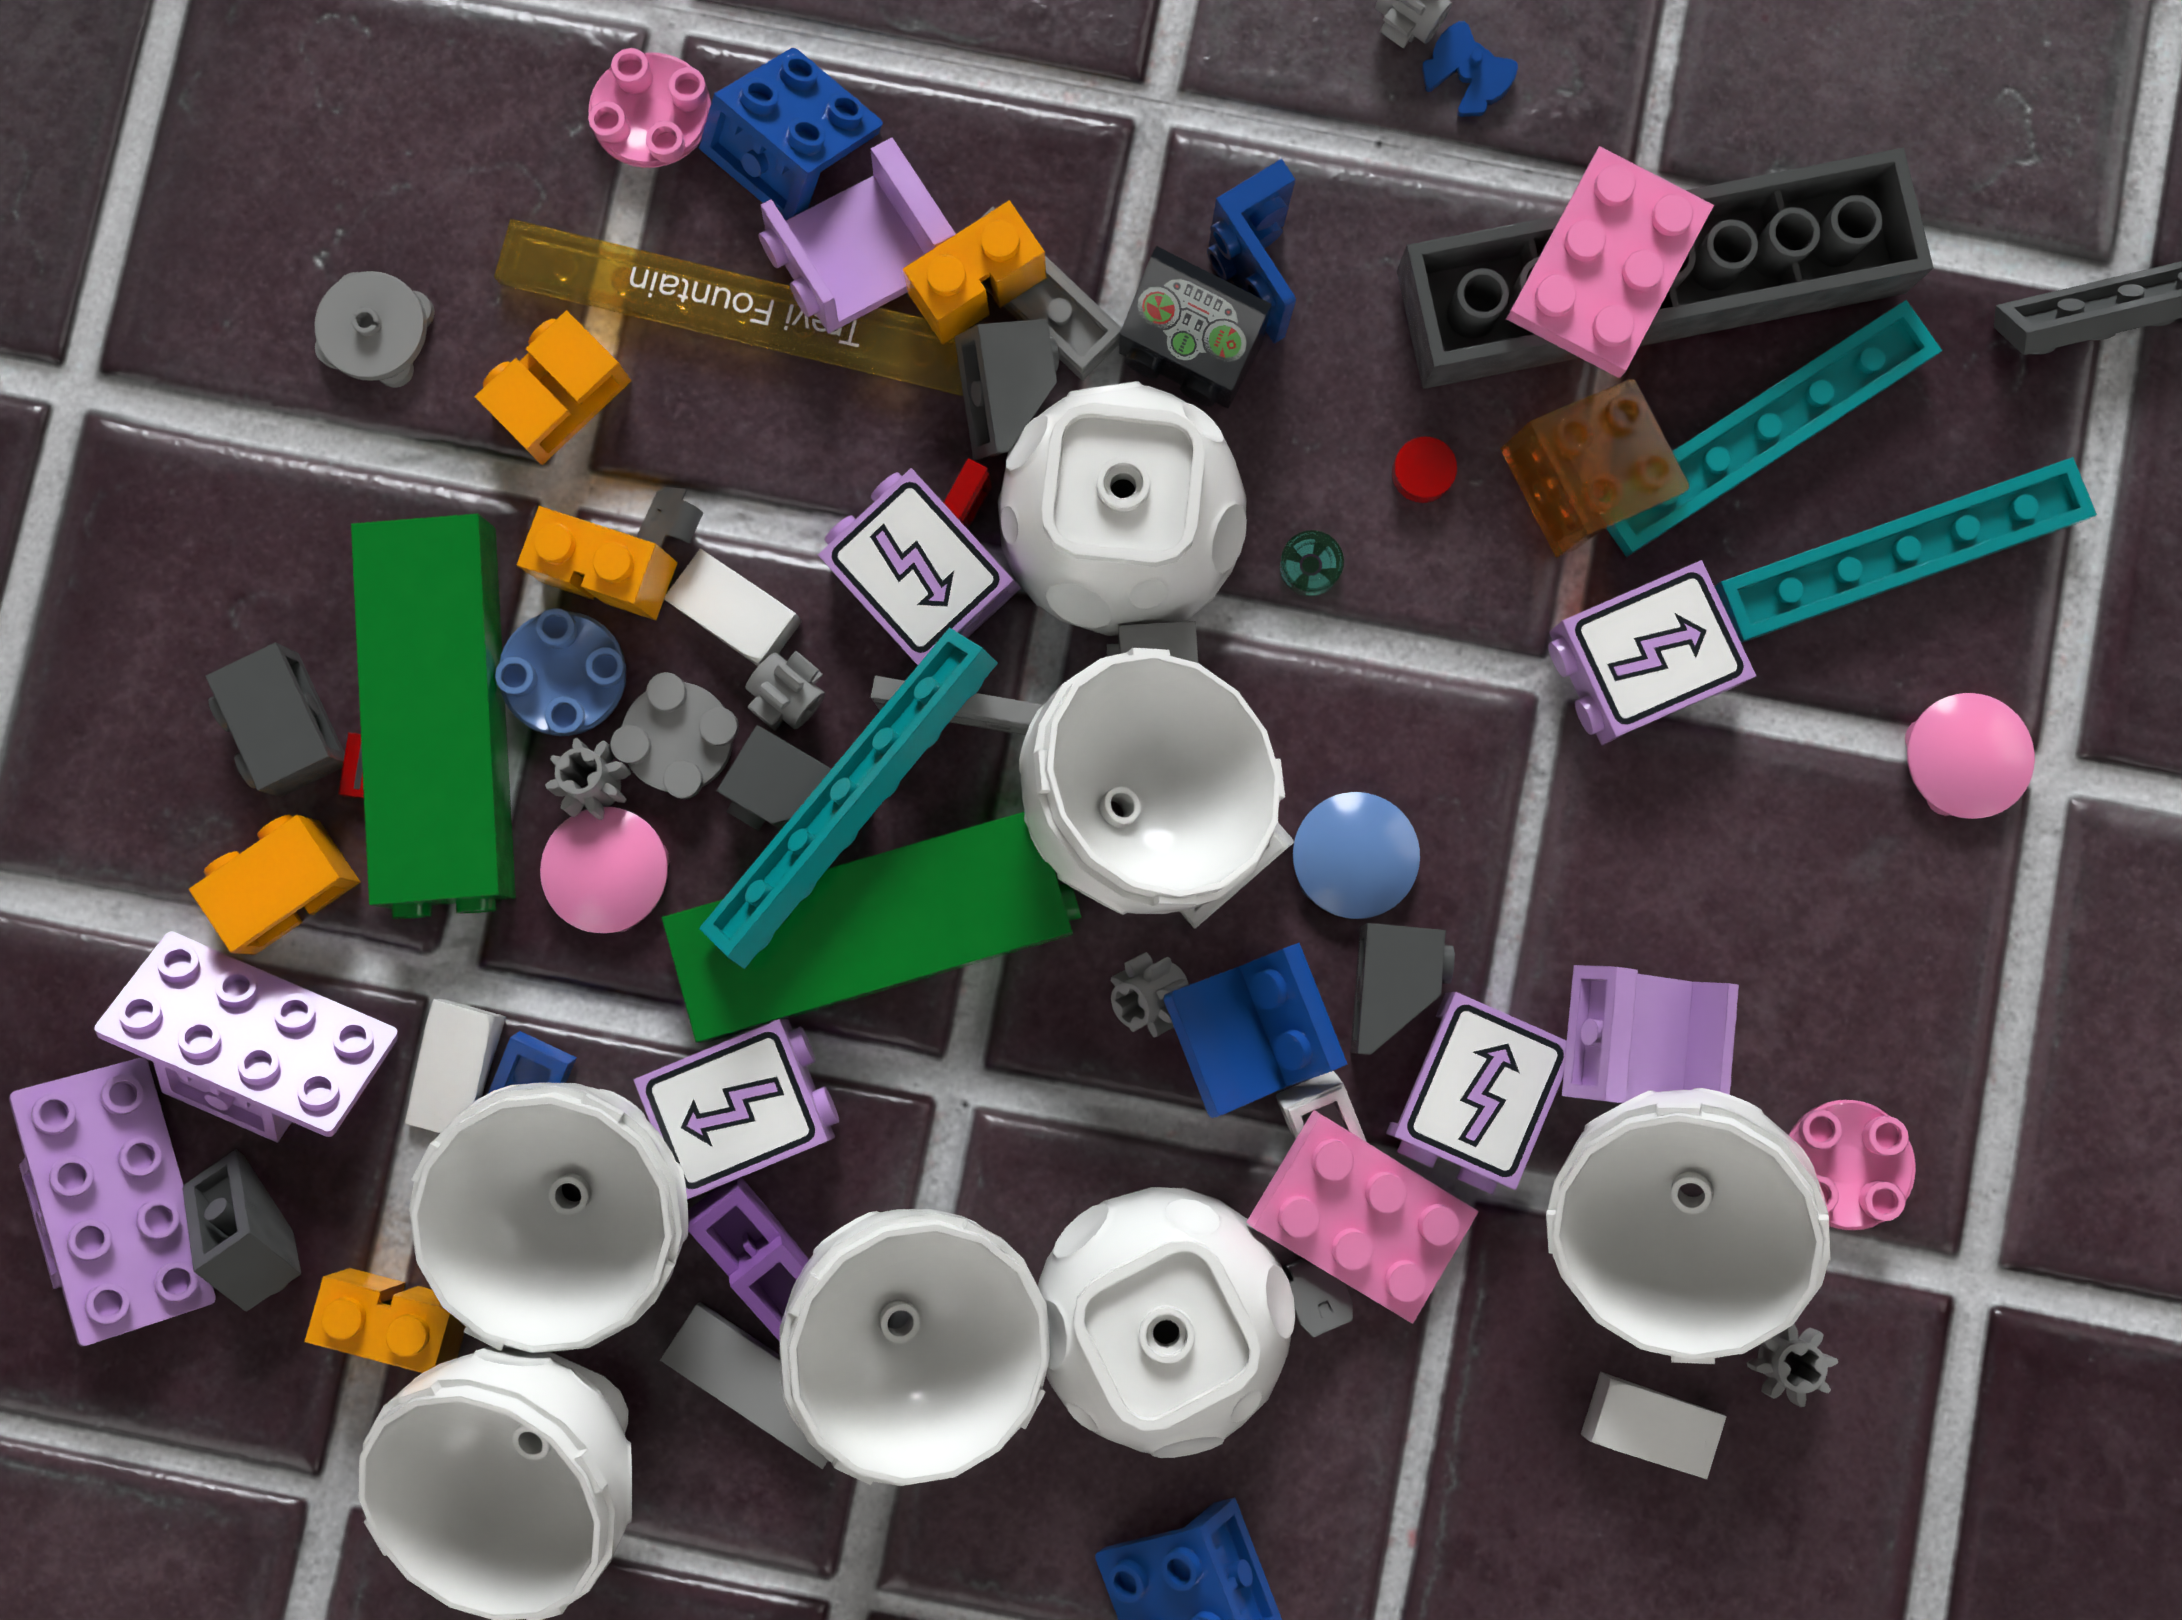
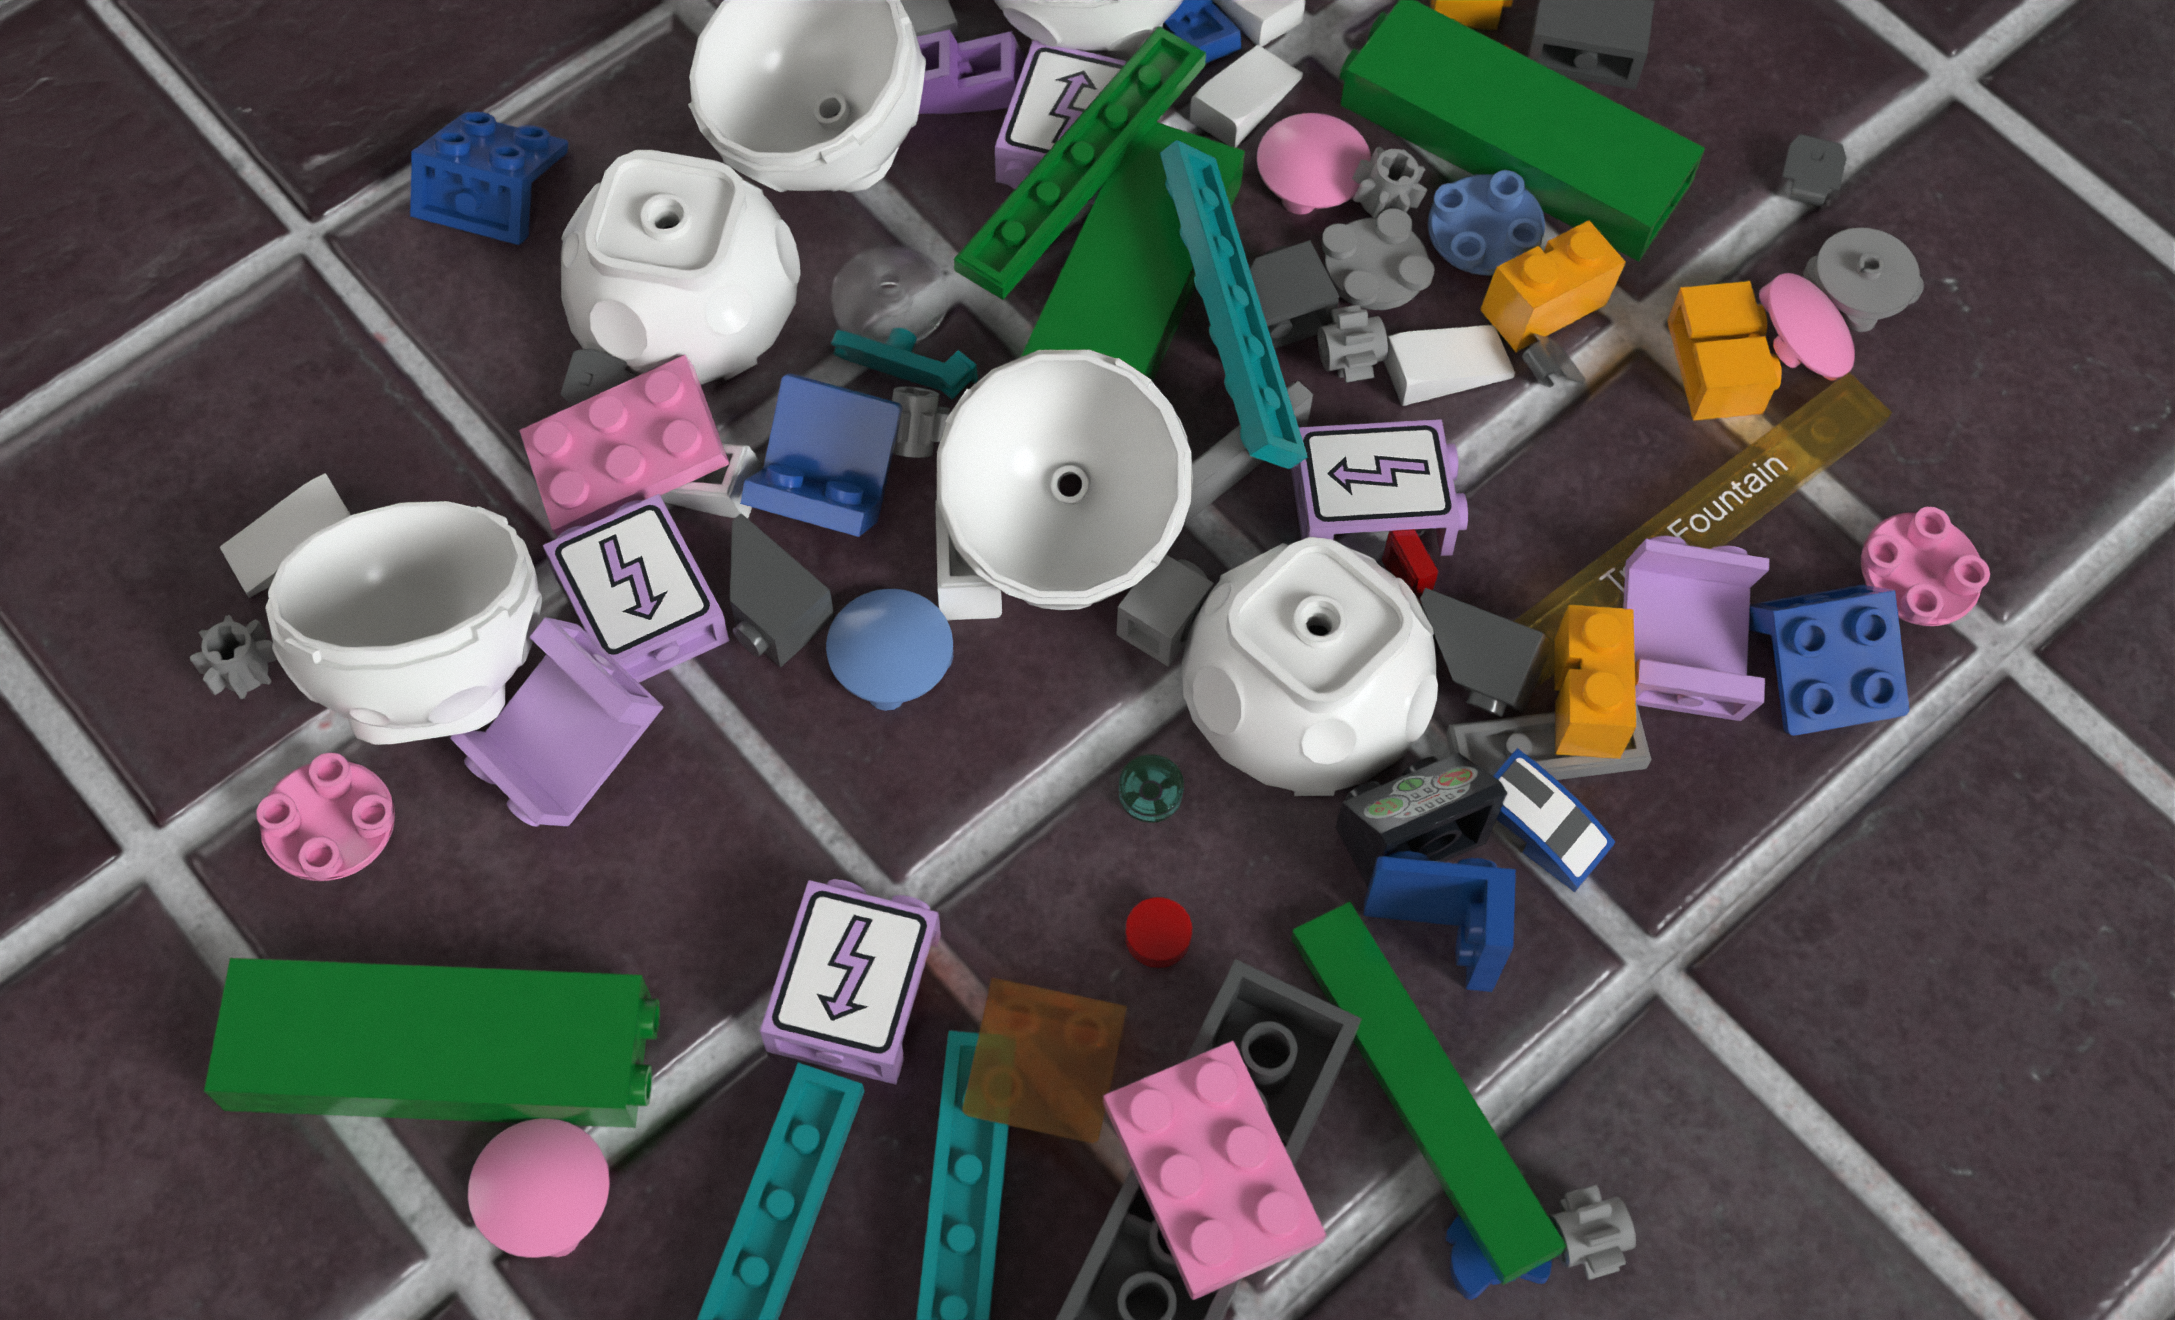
camera: 125 degrees right, 20 degrees down
(294, 436) = (1814, 168): none -> dark grey piece
(477, 330) = (1808, 327): none -> bright pink dish
(572, 985) = (1242, 95): none -> white slope
(786, 1046) = (1079, 163): none -> green tile
(1036, 1096) = (872, 311): none -> clear dish
(1091, 1068) = (898, 360): none -> teal piece
(1108, 250) = (1551, 821): none -> slope
(1398, 189) = (1429, 1095): none -> green tile
(1946, 920) = (432, 1042): none -> green brick

